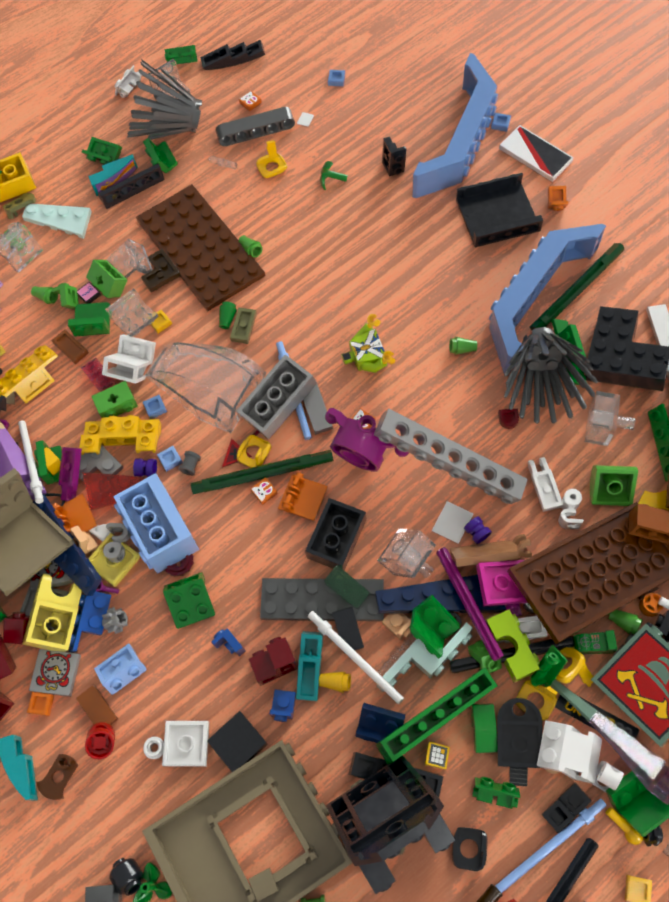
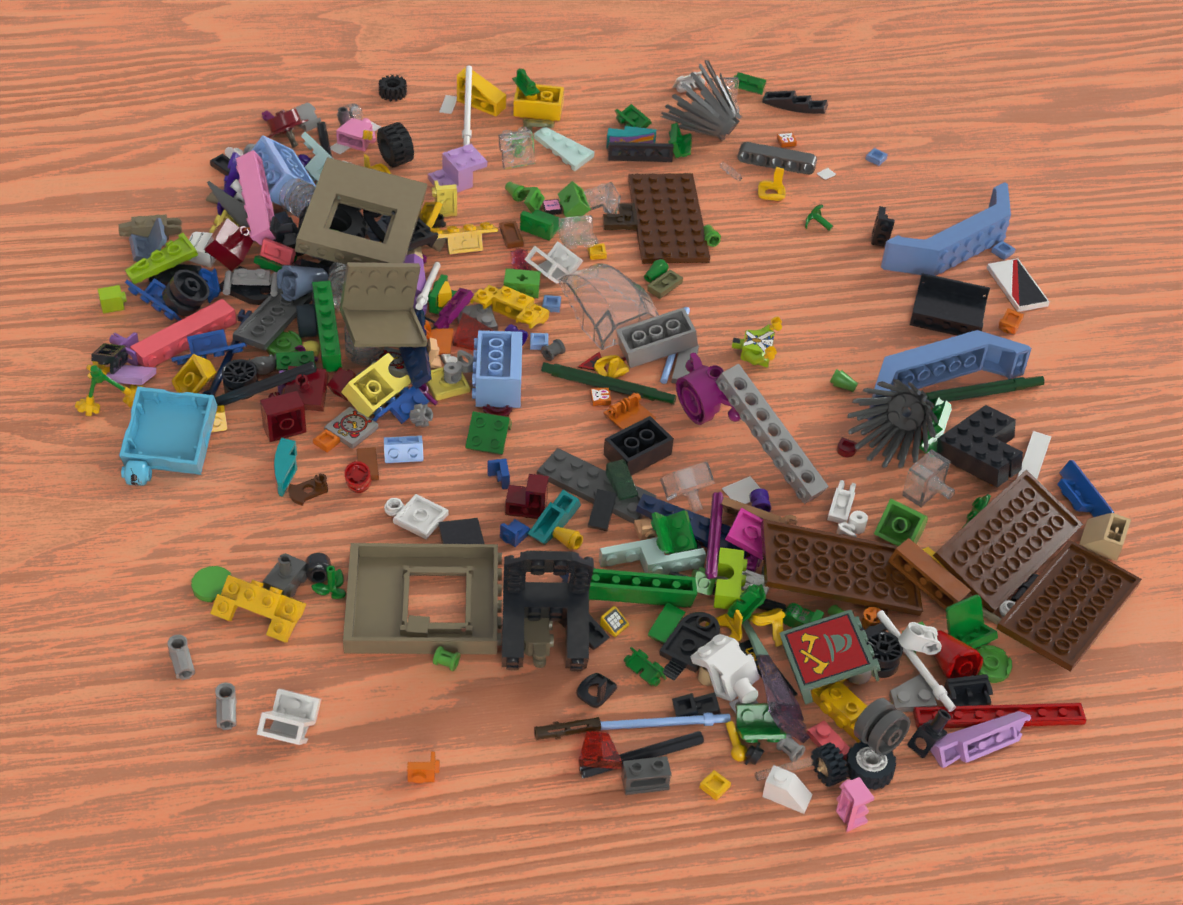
camera: 20 degrees right, 20 degrees down
(326, 629) = (585, 499): white bar -> none

